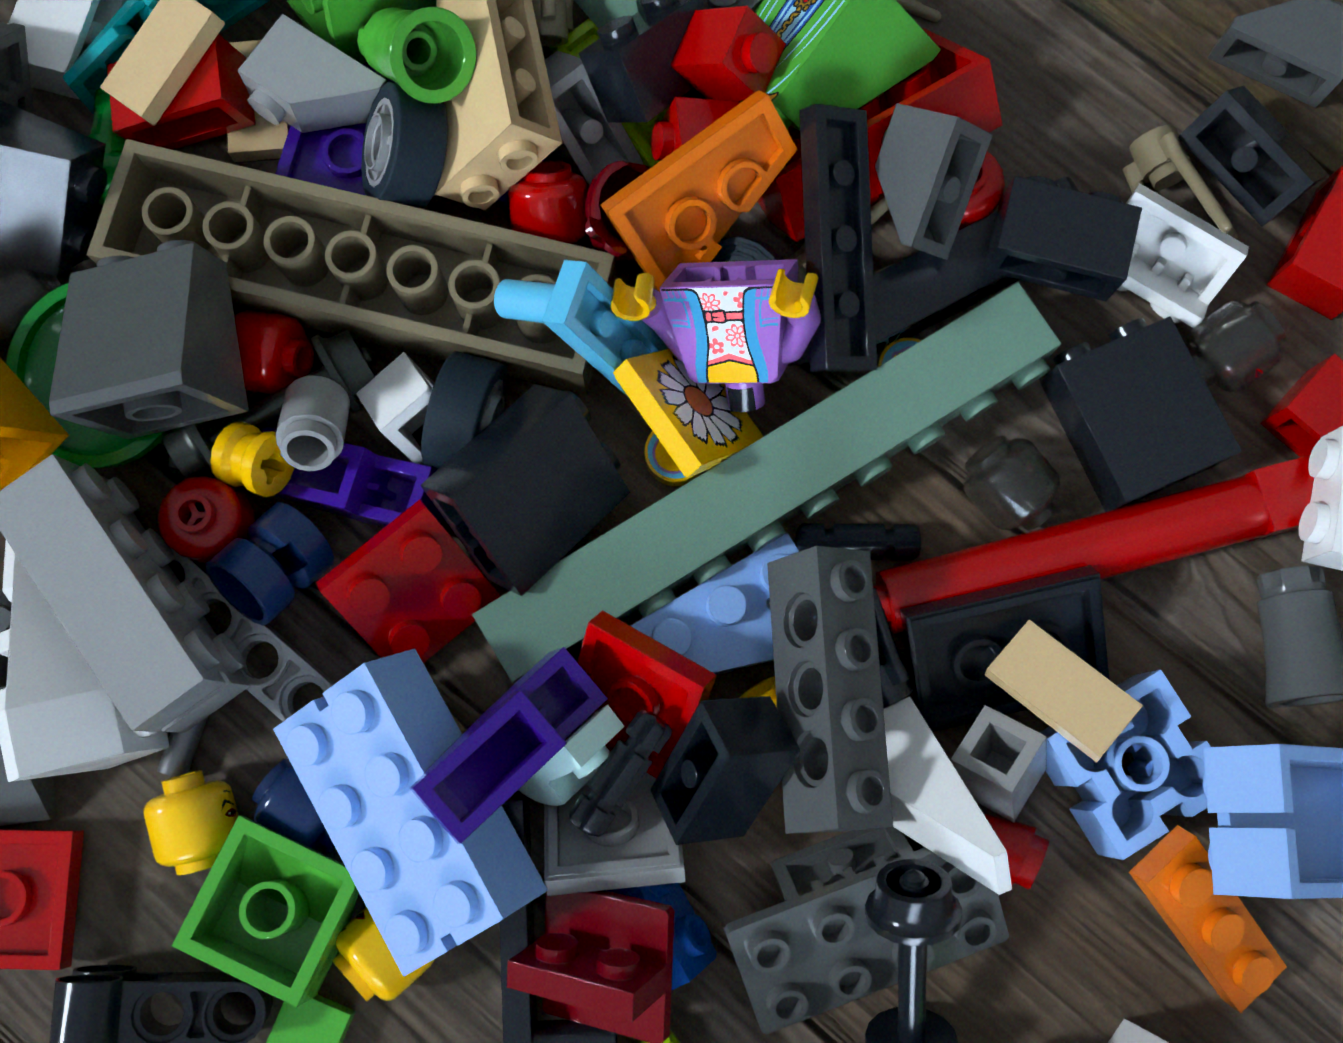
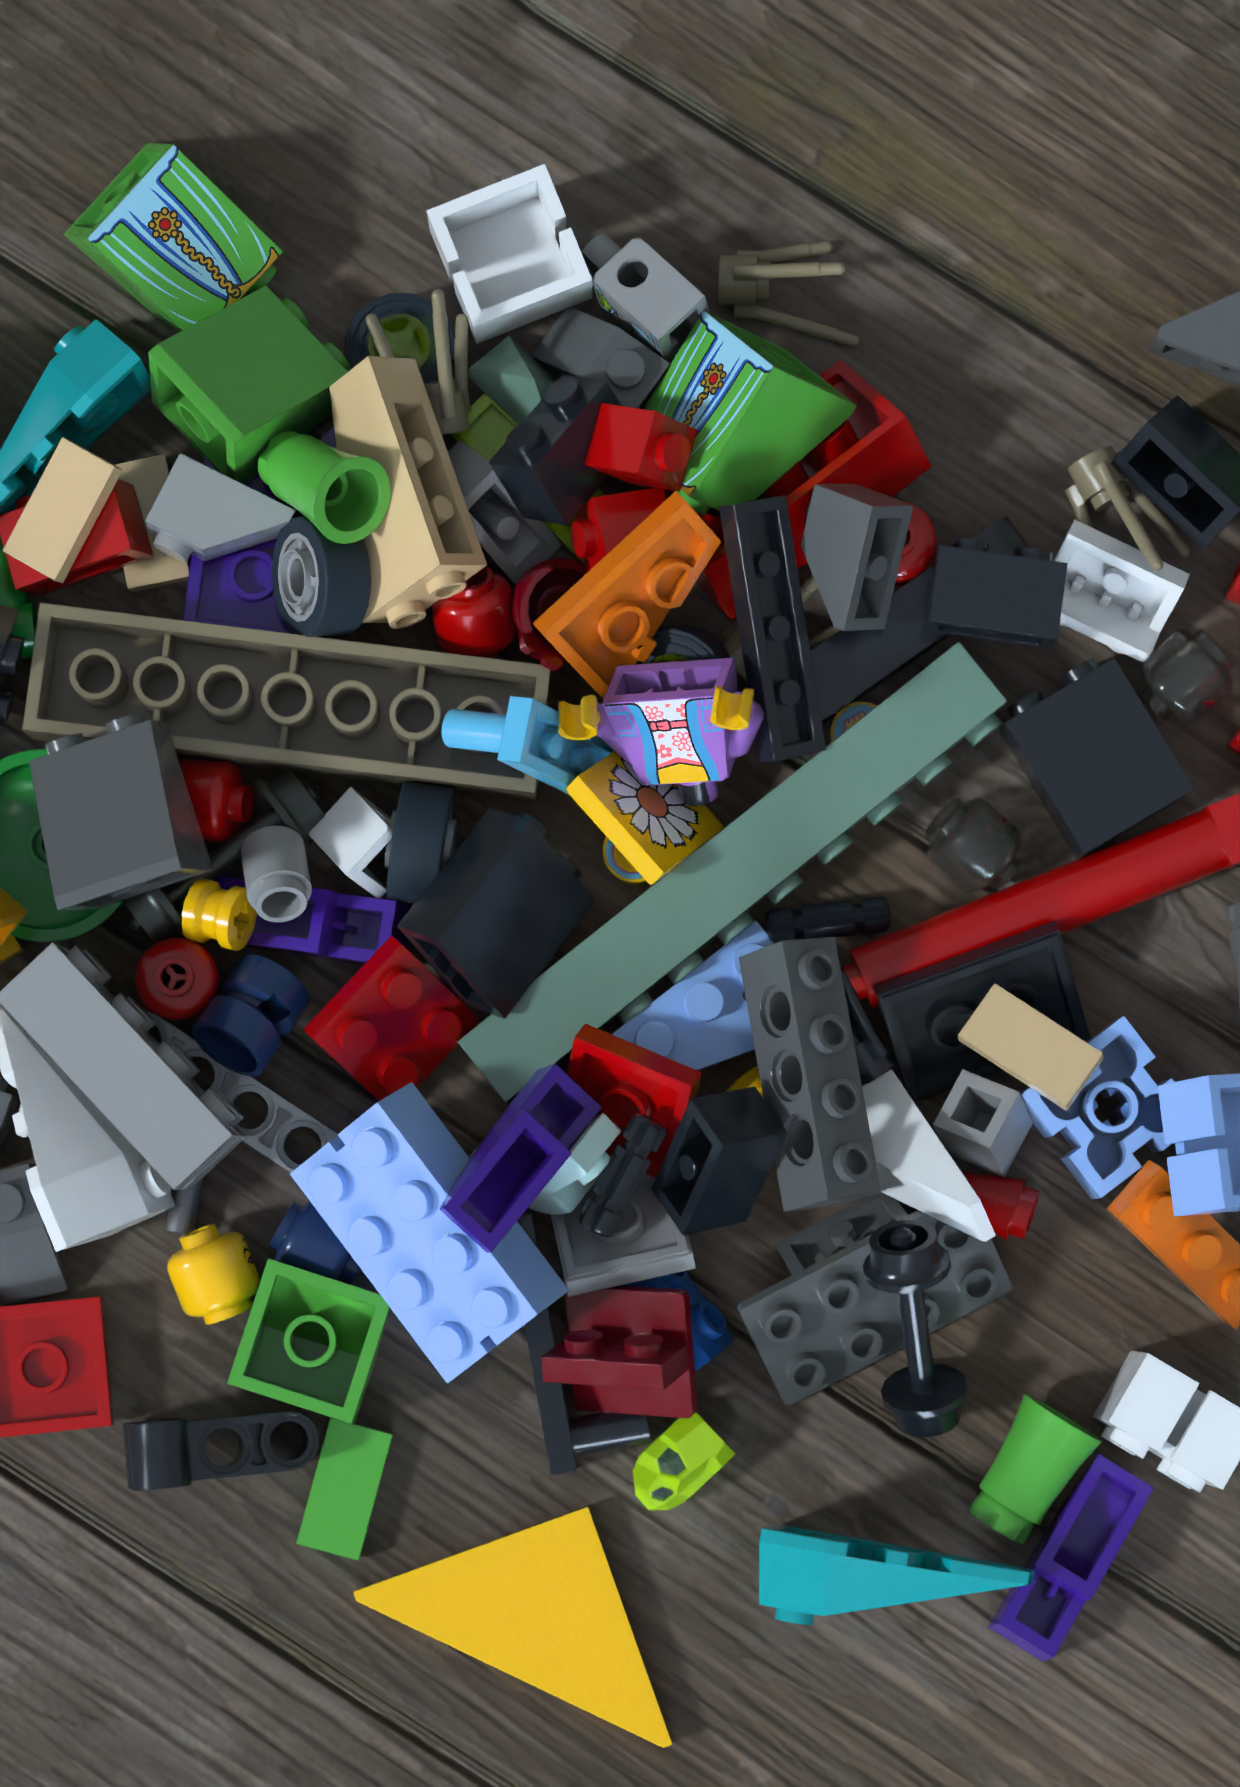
camera: 10 degrees left, 5 degrees up
(368, 961) = (407, 1378): yellow head -> none

